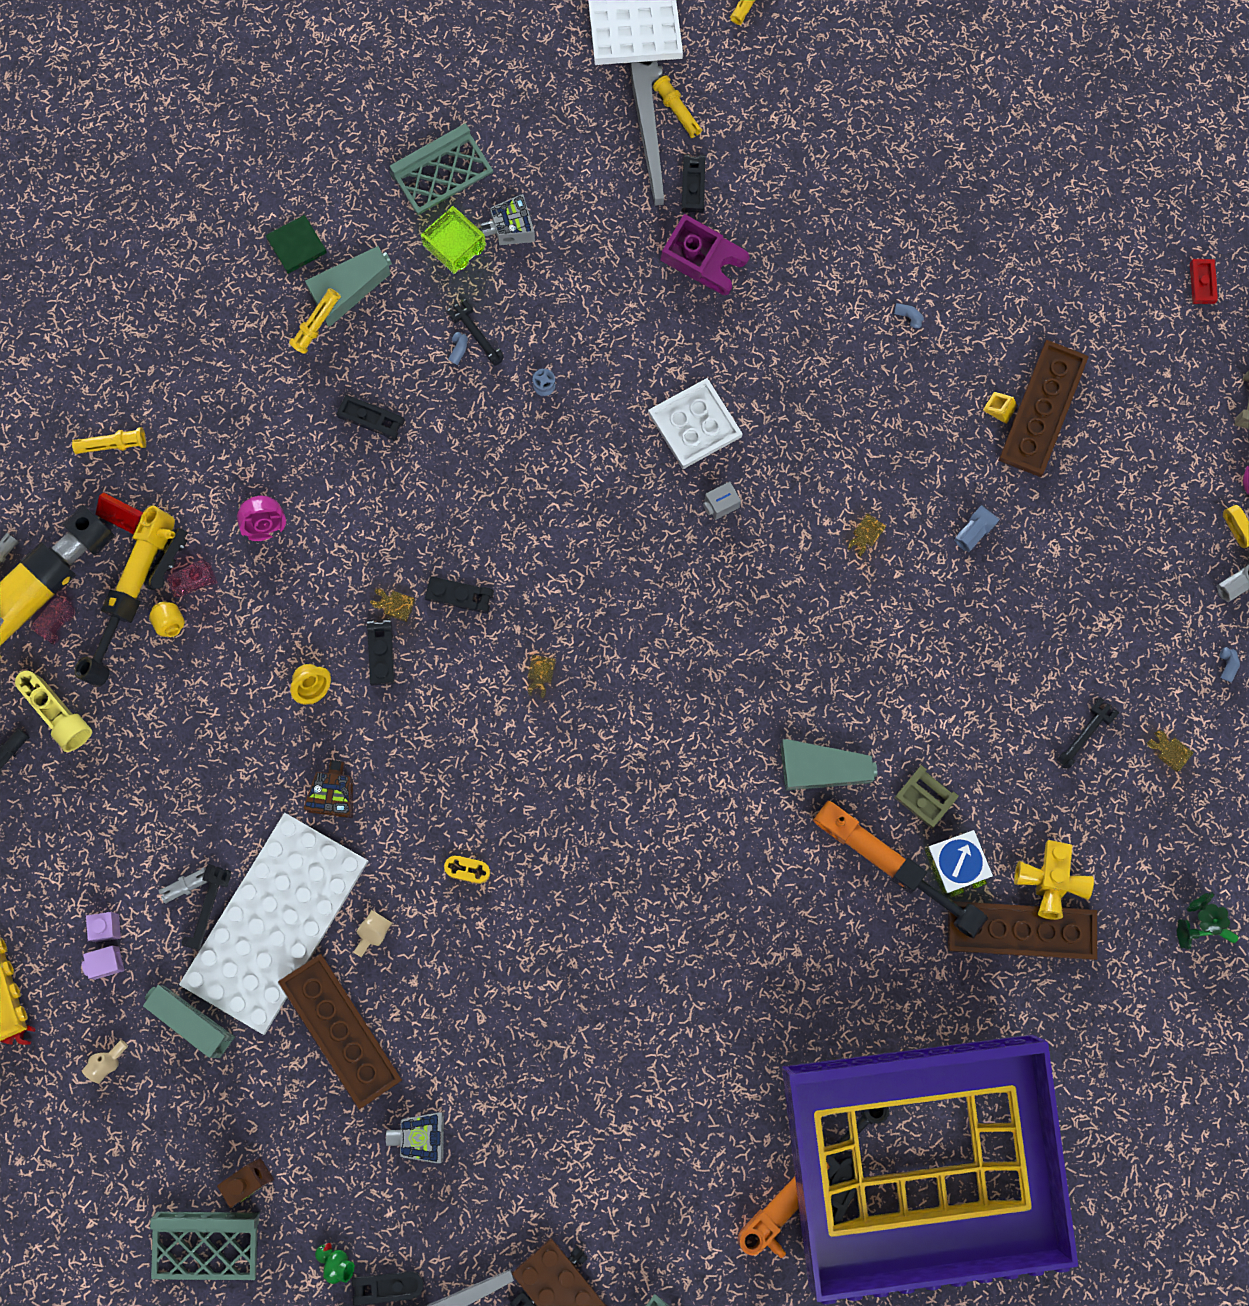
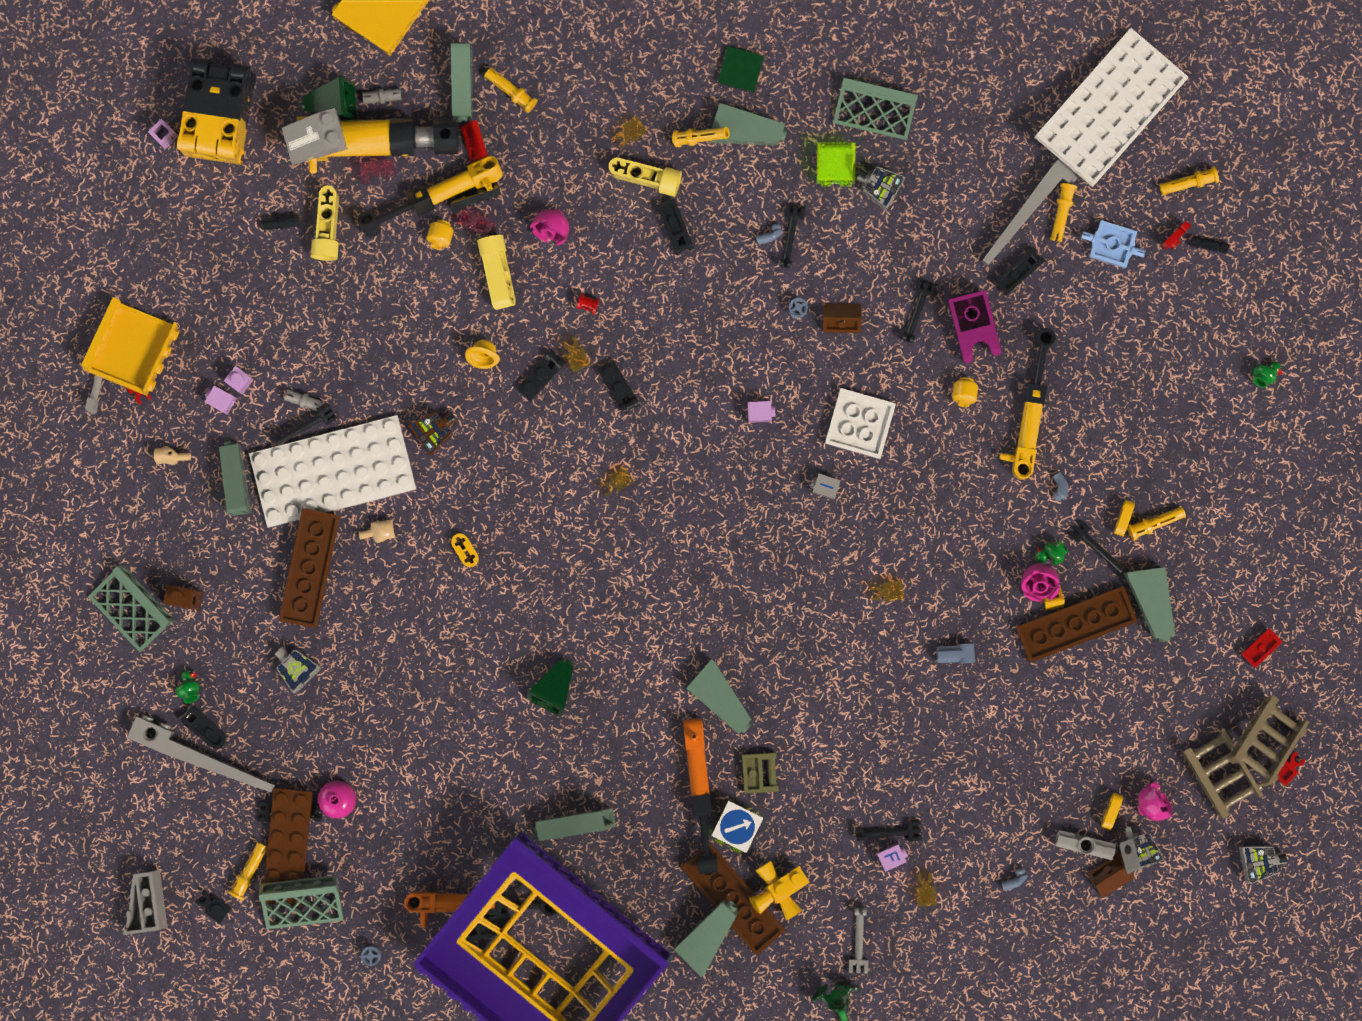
camera: 50 degrees right, 10 degrees up
(55, 471) = (462, 81): none -> sand green slope
(231, 588) = (497, 272): none -> light yellow beam
(252, 375) = (631, 130): none -> clear yellow plate
(324, 388) = (666, 179): none -> light yellow beam
(359, 551) = (587, 303): none -> red bush
(580, 1208) = (346, 799): none -> dark pink cylinder
(589, 355) = (842, 318): none -> reddish brown panel
(602, 494) = (760, 411): none -> lavender brick
(659, 318) = (908, 335): none -> black hinge
(674, 909) = (553, 688): none -> dark green slope
(744, 93) = (1113, 244): none -> light blue plate
(753, 314) = (965, 392): none -> yellow head
(788, 45) = (1174, 240): none -> red plate
(814, 266) = (1034, 402): none -> yellow piece
(818, 25) = (1210, 245): none -> black axle
(819, 1012) = (575, 824): none -> sand green slope
(962, 366) = (1054, 550): none -> green animal
(968, 334) = (1082, 534): none -> black hinge
(970, 75) = (1266, 375): none -> green animal
(980, 400) = (1040, 582): none -> dark pink cylinder
(986, 287) = (1124, 517): none -> yellow beam
(1011, 275) = (1147, 525): none -> yellow pin
(1040, 990) = (705, 939): none -> sand green slope
(1082, 328) = (1153, 599): none -> sand green slope
(1112, 751) = (892, 857): none -> lavender brick
(1182, 871) = (860, 912): none -> light grey hinge

